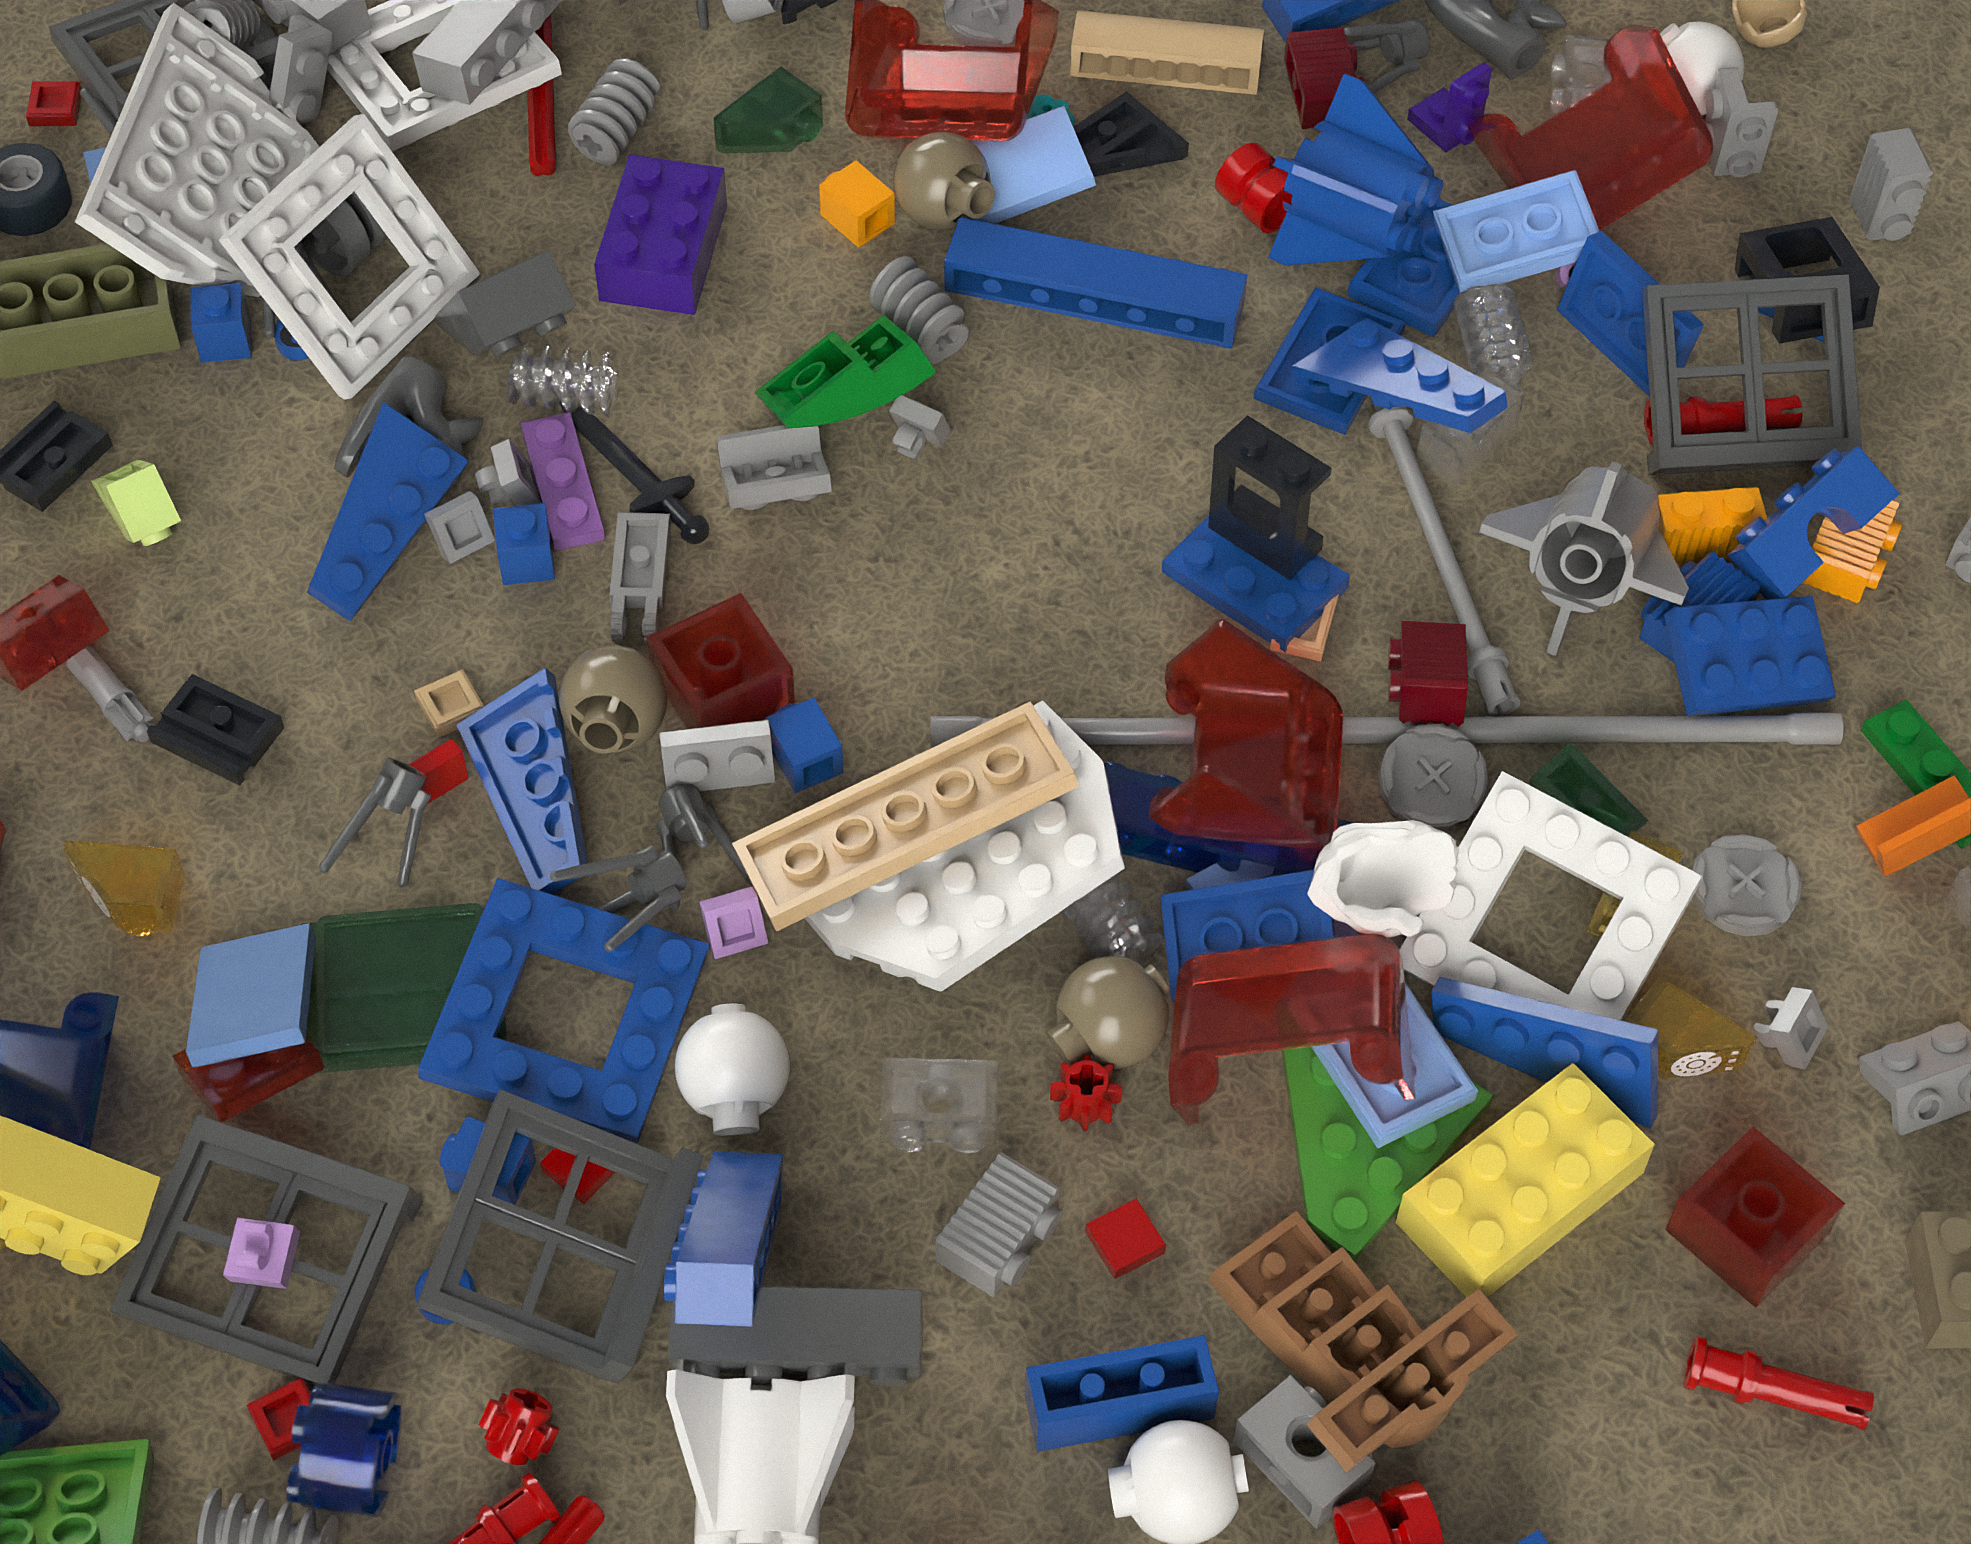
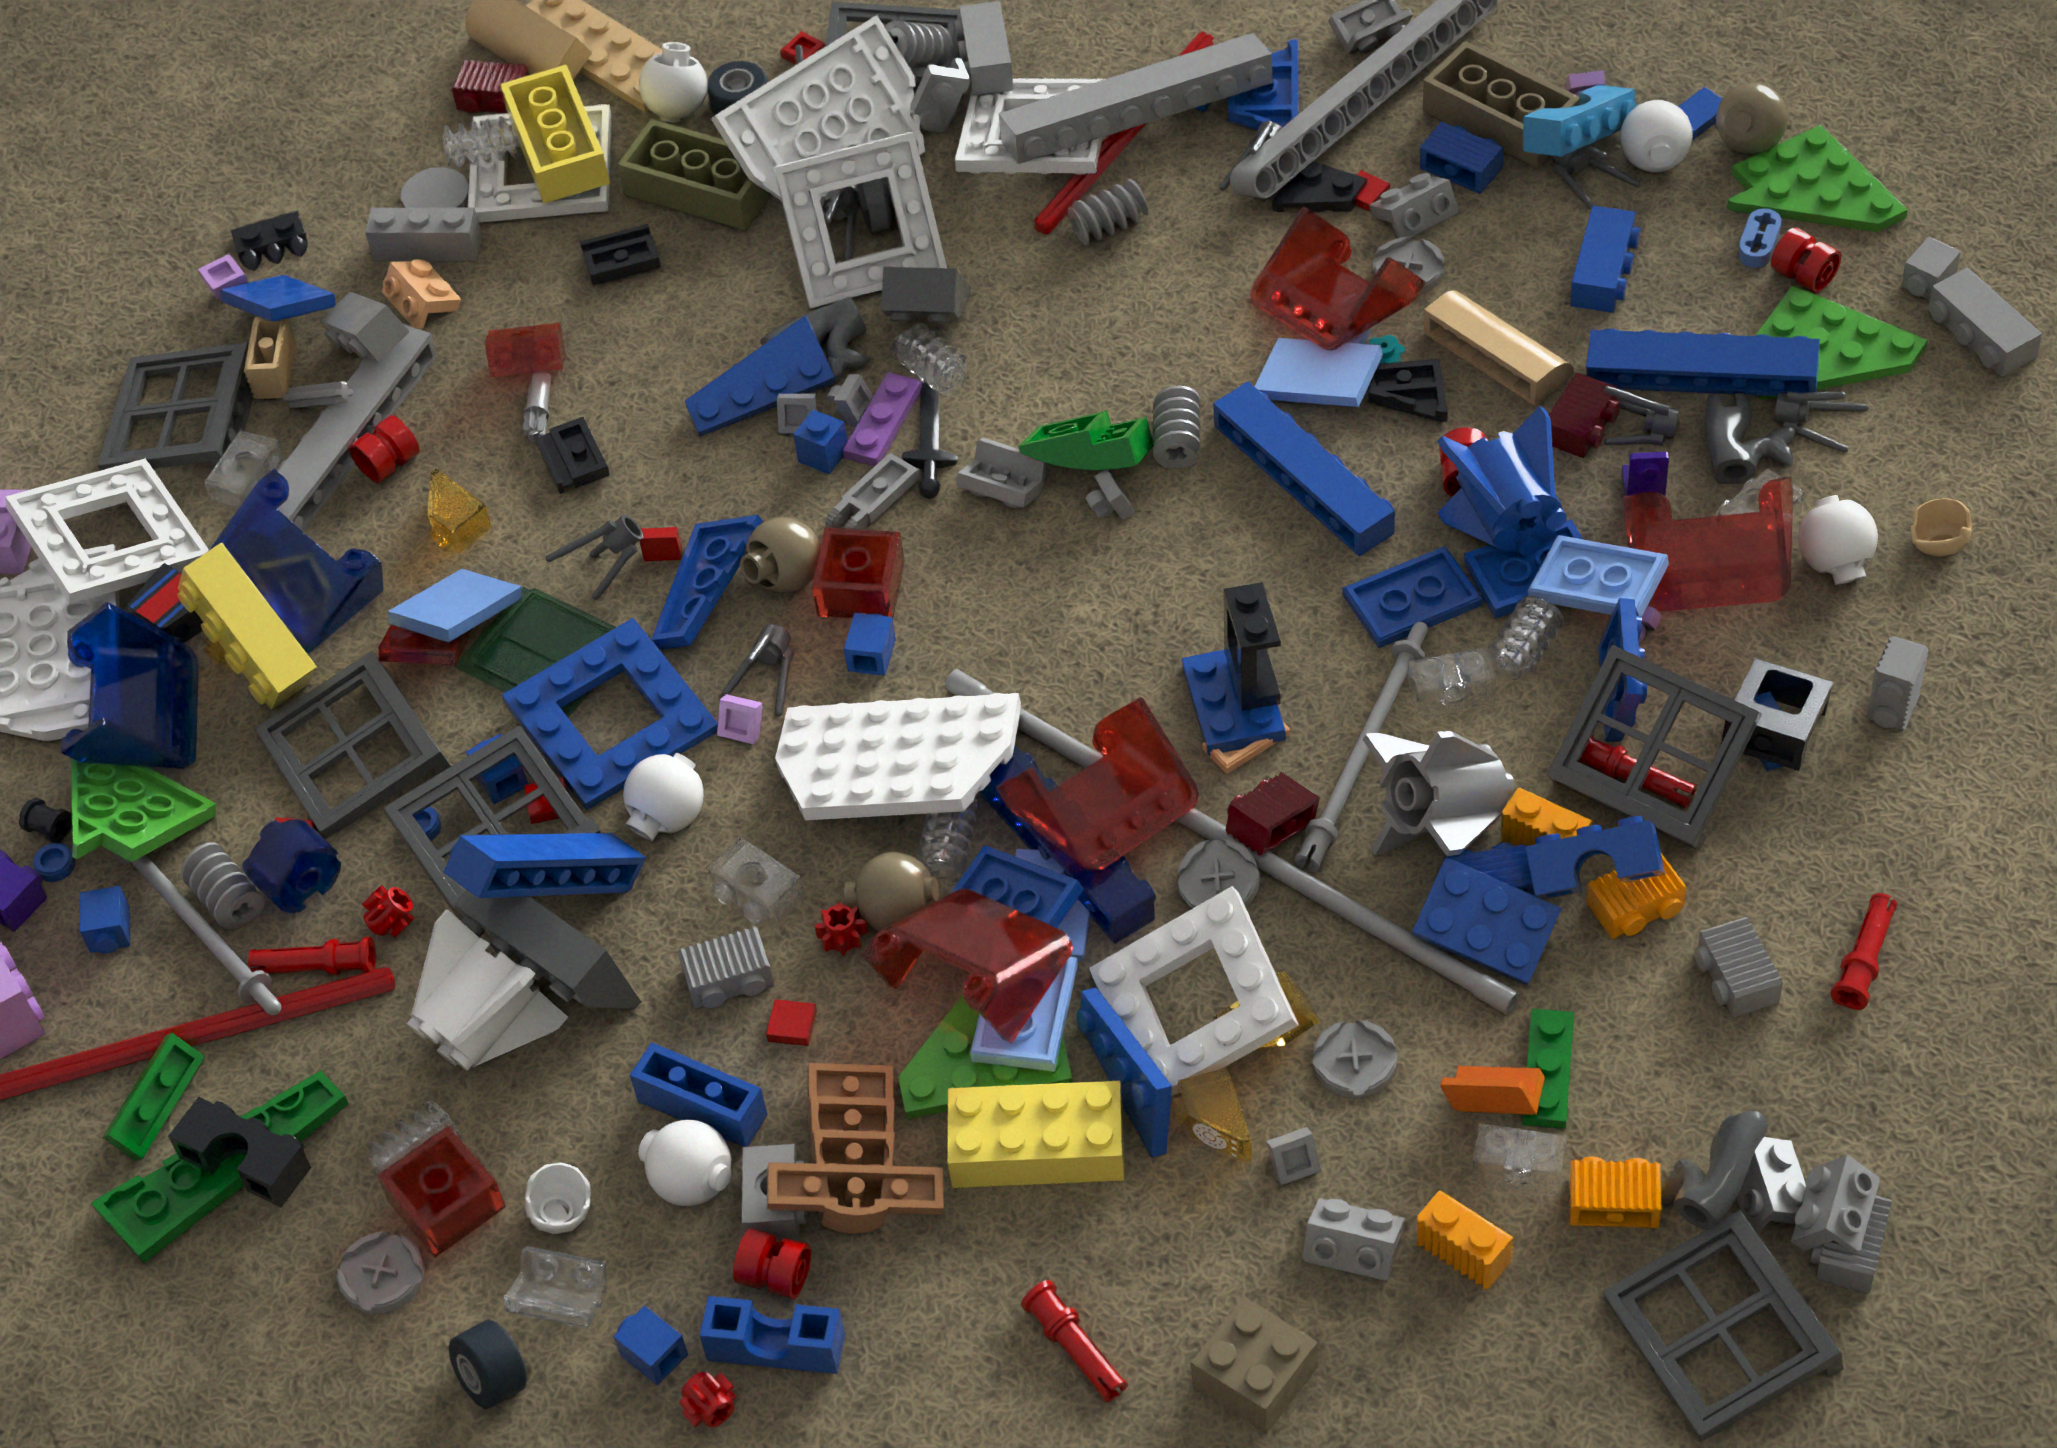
camera: 45 degrees right, 5 degrees down
(138, 502) = (639, 305): yellowish green slope -> none
(220, 322) = (769, 226): blue brick -> none
(261, 1253) = (342, 741): lavender tile -> none
(448, 702) = (706, 509): tan tile -> none
(654, 879) = (714, 672): dark grey plant -> none
(661, 234) = (1066, 301): dark purple brick -> none
(718, 756) = (810, 620): light grey bracket -> none
(770, 117) = (1199, 262): clear green slope -> none
(857, 203) = (1202, 343): light orange brick -> none
(904, 815) = (871, 708): tan plate -> none
(943, 180) = (1259, 353): dark tan brick -> none
(1385, 875) = (1097, 901): white hair -> none
(1401, 374) = (1425, 622): blue wing -> none
(1582, 786) = (1286, 937): clear green slope -> none
(1737, 127) = (1823, 589): light grey bracket -> none
(1754, 1216) = (1149, 1238): clear red brick -> none

